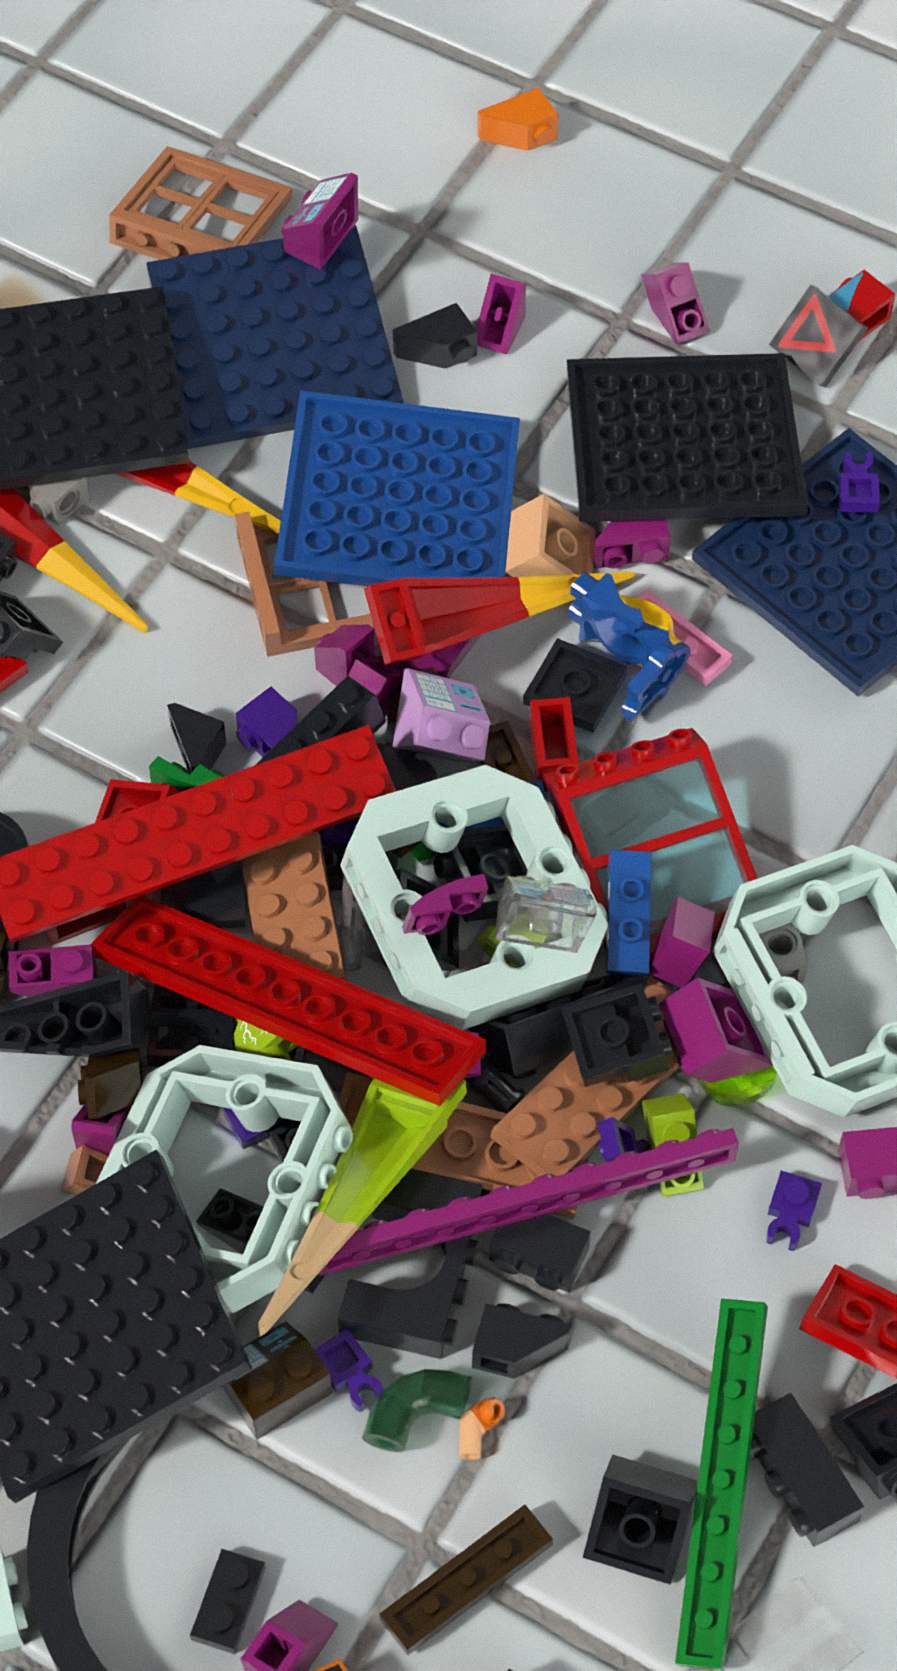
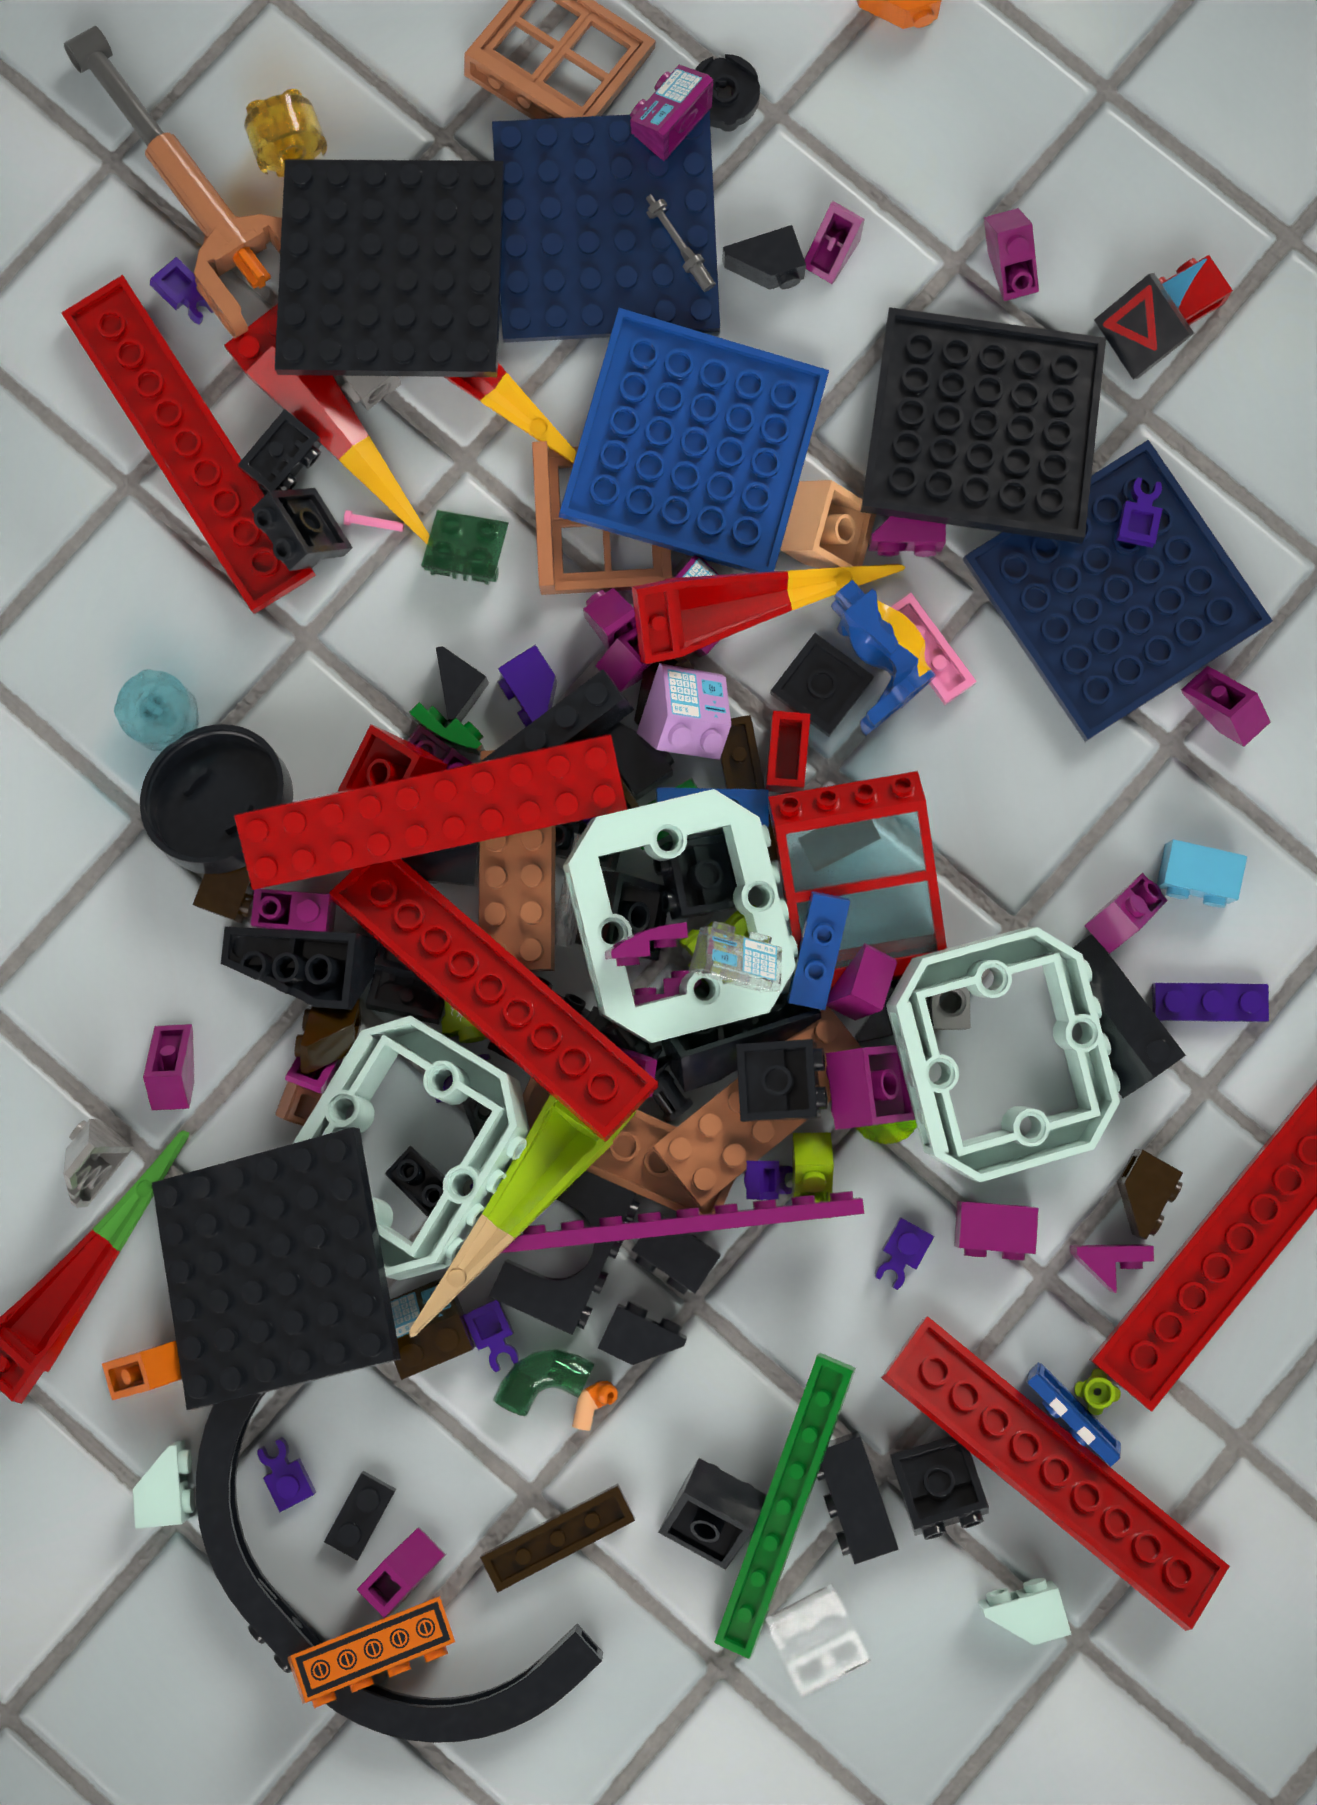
camera: 15 degrees right, 25 degrees up
(56, 616) = (373, 522): none -> bright pink piece
(135, 1576) = (287, 1481): none -> dark purple plate
(180, 618) = (465, 547): none -> clear green hinge
(365, 344) = (693, 263): none -> dark grey piece
(386, 217) = (745, 91): none -> black plate

